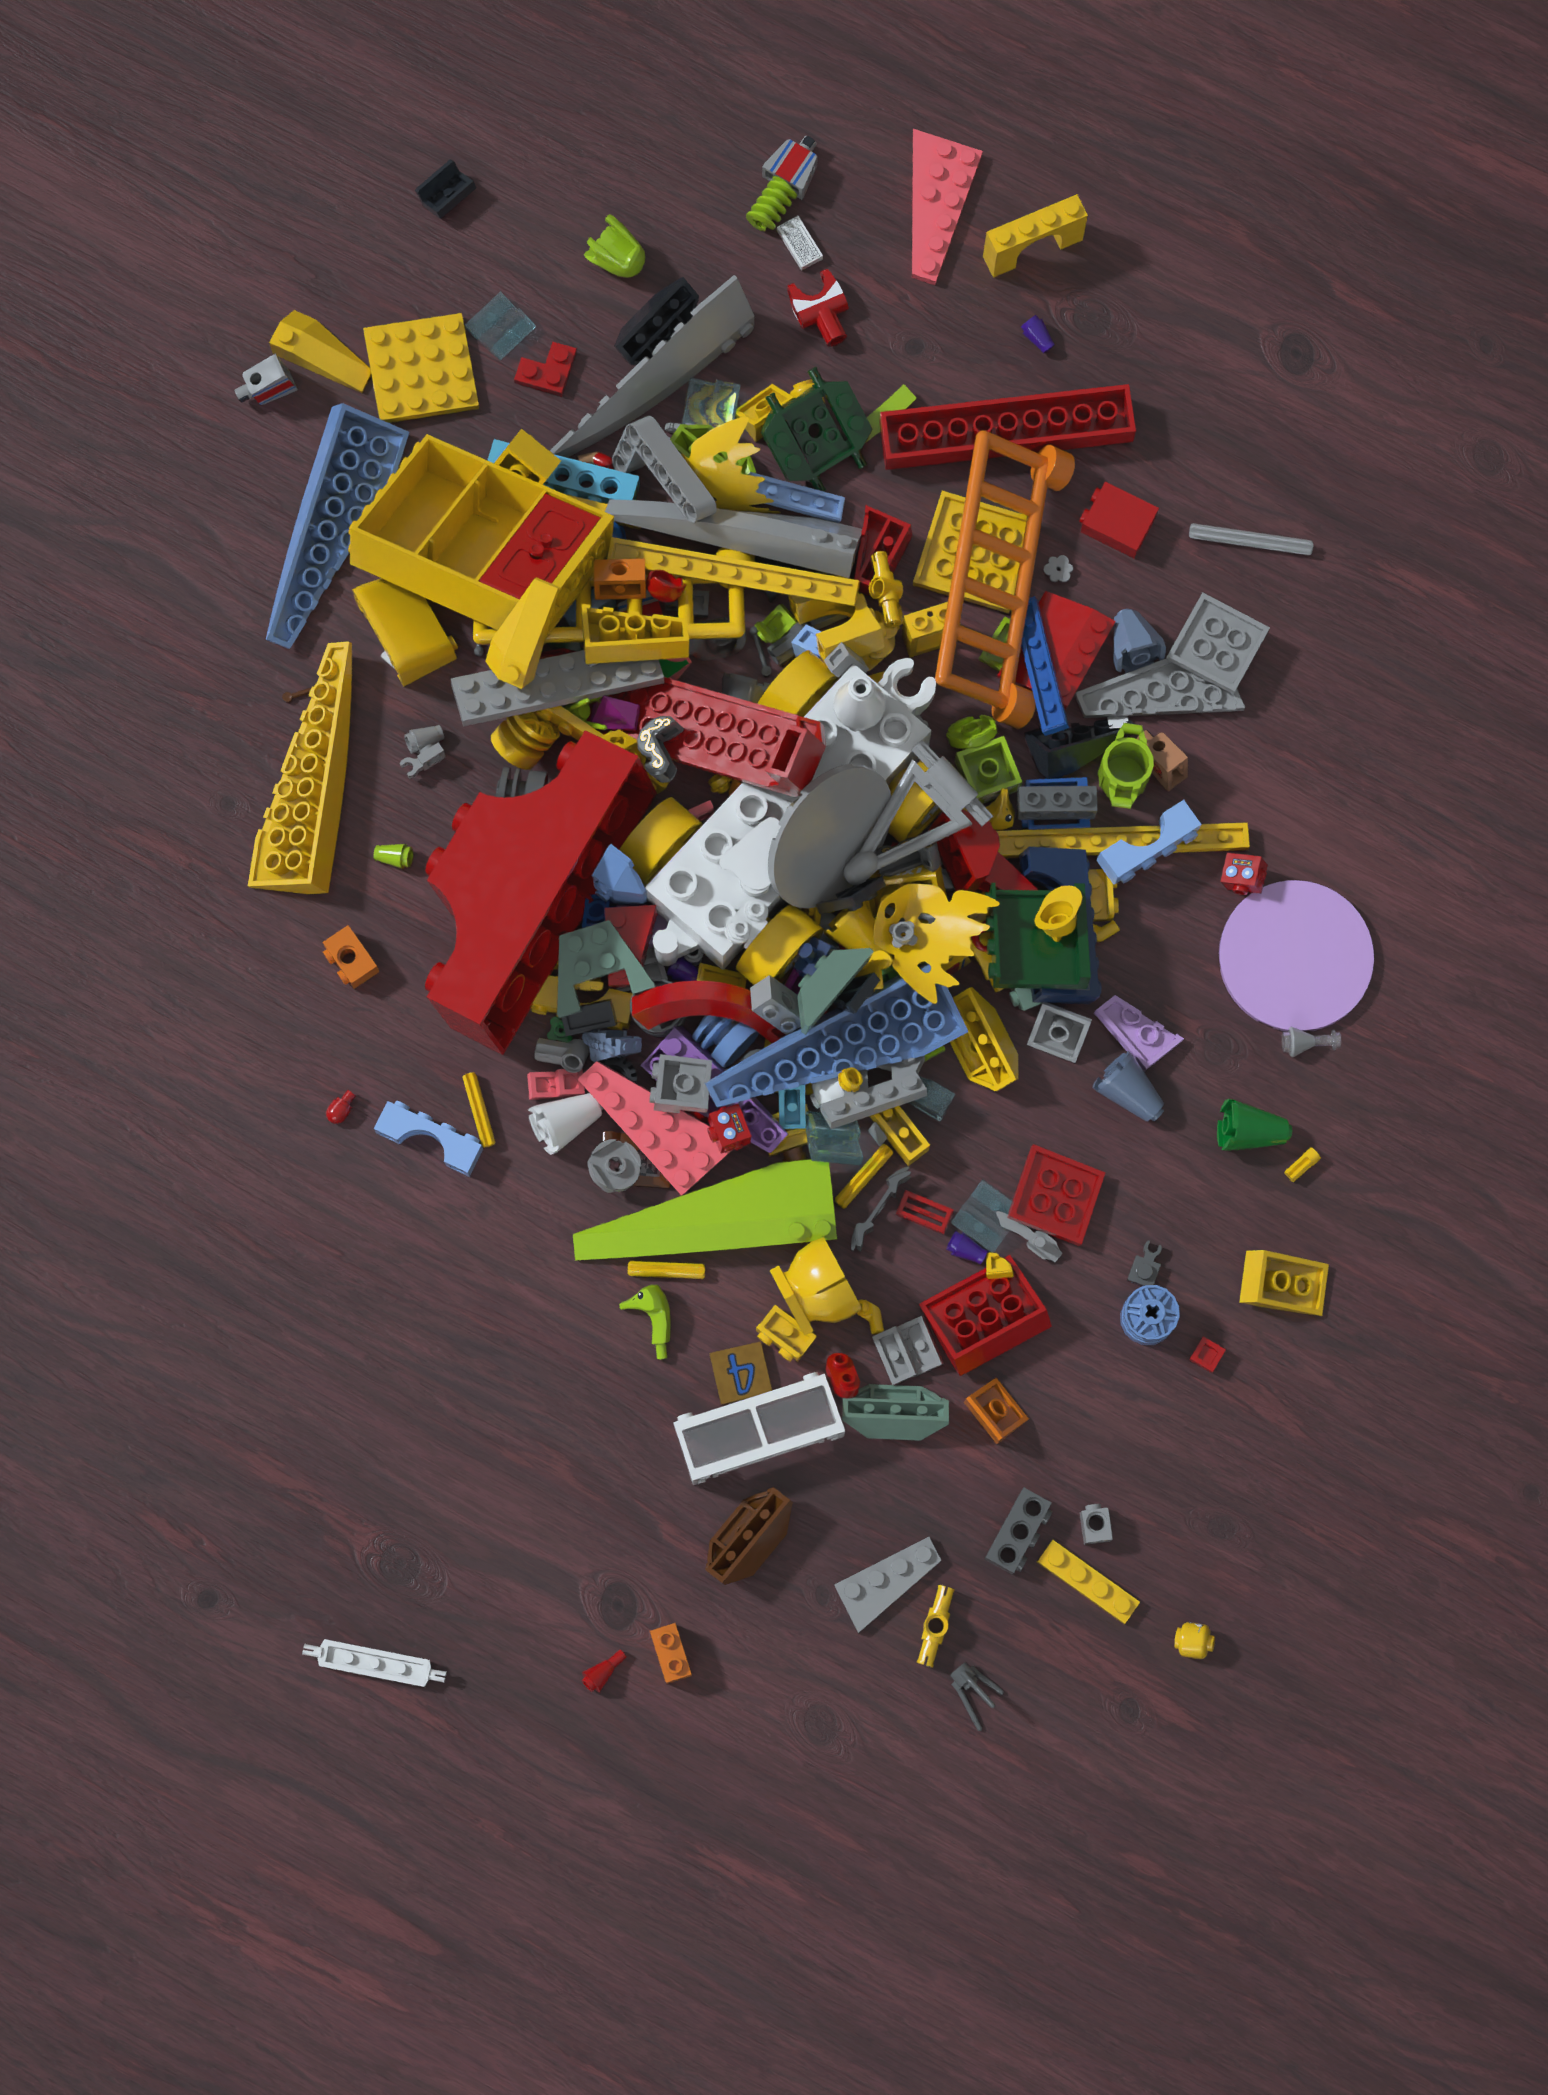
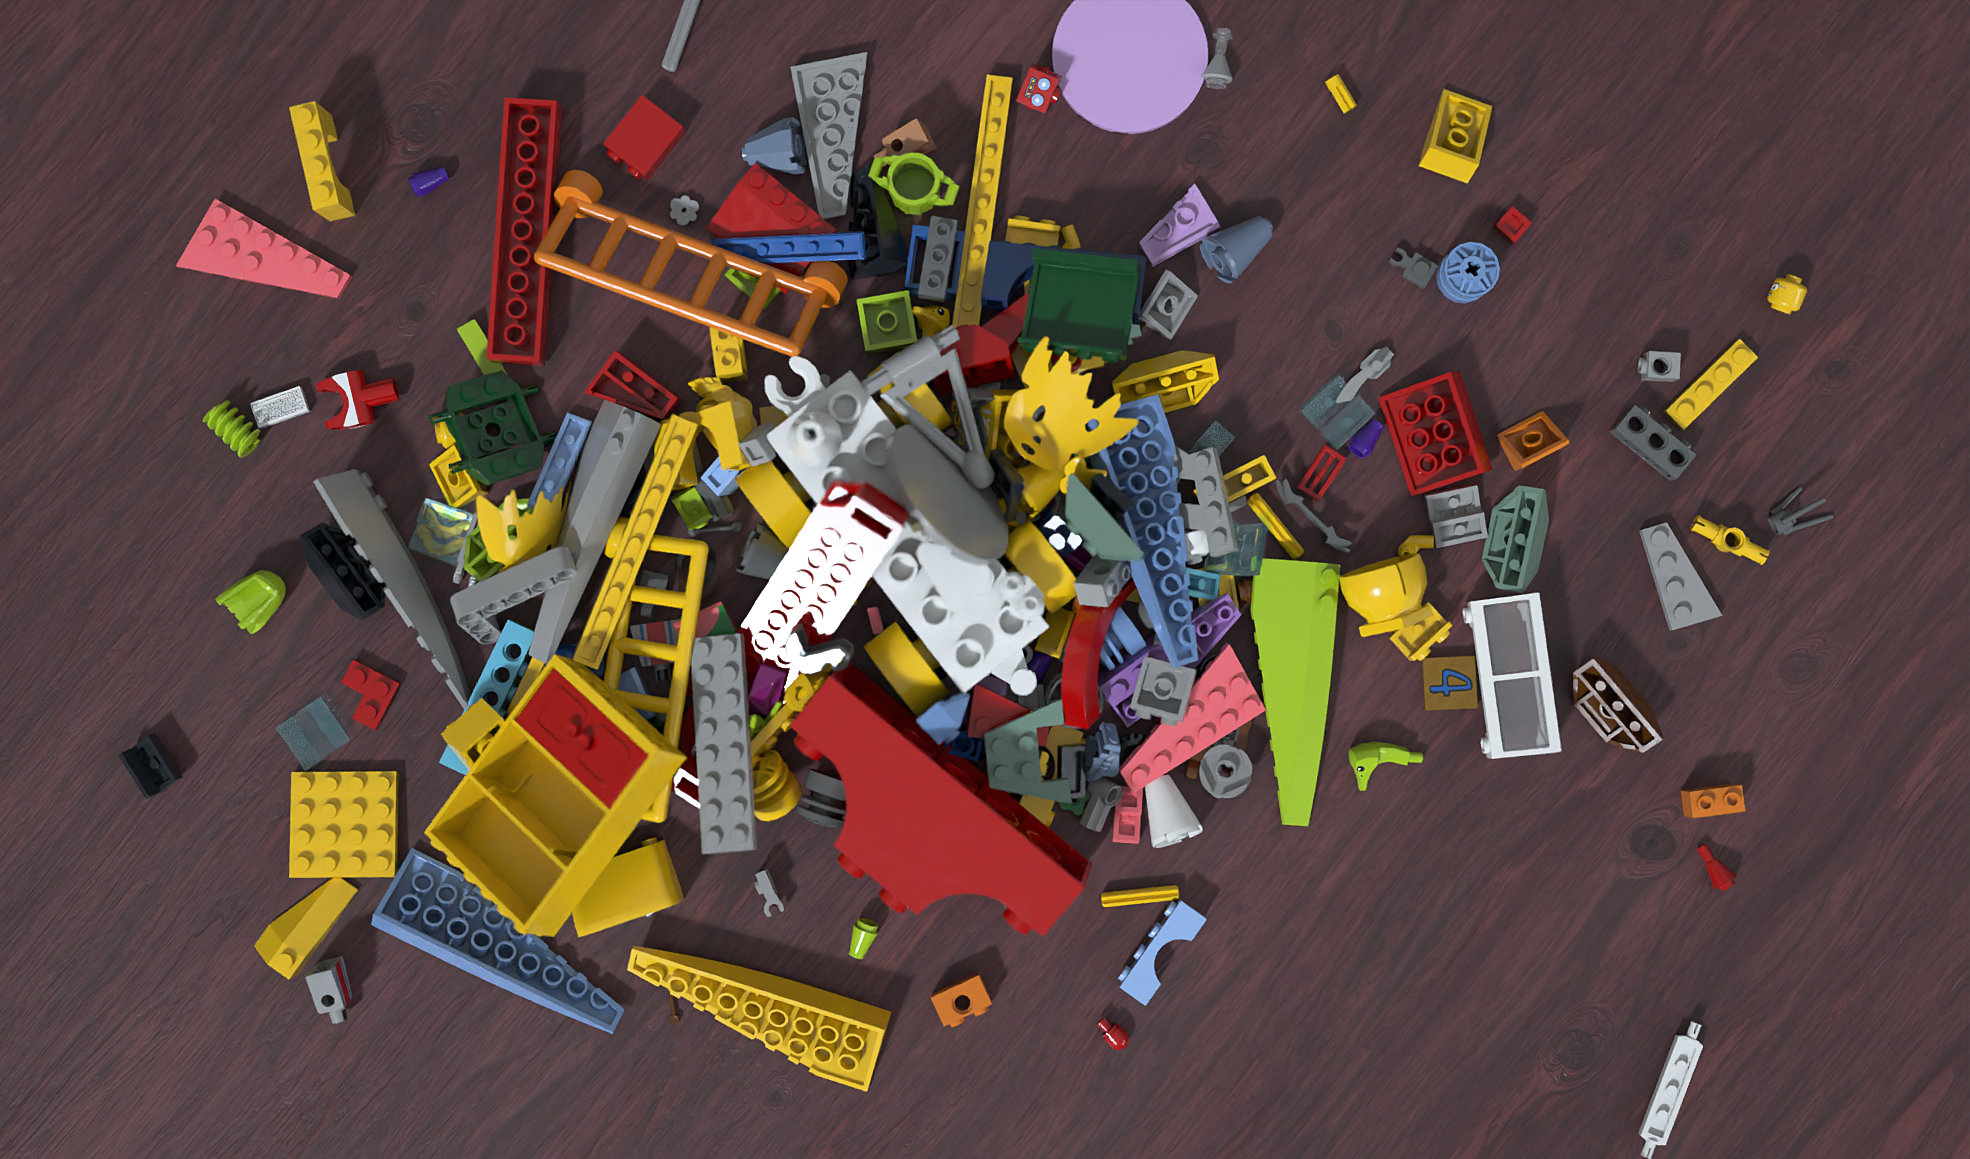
camera: 75 degrees left, 10 degrees up
(421, 737) = (744, 887): light grey cone -> none
(520, 639) = (678, 775): yellow wedge -> none
(597, 458) = (477, 659): red arm -> none
(619, 579) = (630, 650): orange brick -> none
(631, 636) = (693, 659): yellow wedge -> none
(664, 586) = (637, 615): red hair -> none
(665, 1269) = (1334, 738): yellow axle -> none
(728, 1128) = (1217, 652): red head -> none
(793, 164) = (192, 397): torso -> none
(839, 1371) = (1471, 584): red plate -> none
(850, 1079) = (1190, 521): yellow plate -> none
(885, 589) = (681, 388): yellow pin -> none
(903, 927) = (1047, 434): light grey plate -> none
(940, 549) = (639, 321): yellow plate -> none
(971, 732) = (843, 331): lime tile -> none
(997, 1266) = (1391, 411): yellow tile -> none
(1056, 1195) = (1331, 340): red plate -> none
(1059, 912) = (1059, 278): yellow piece -> none
(1117, 721) = (857, 182): white sticker -> none
(1124, 859) = (982, 147): light blue arch -> none
(1218, 643) = (796, 64): light grey plate -> none
(1250, 1127) = (1298, 137): green cone -> none

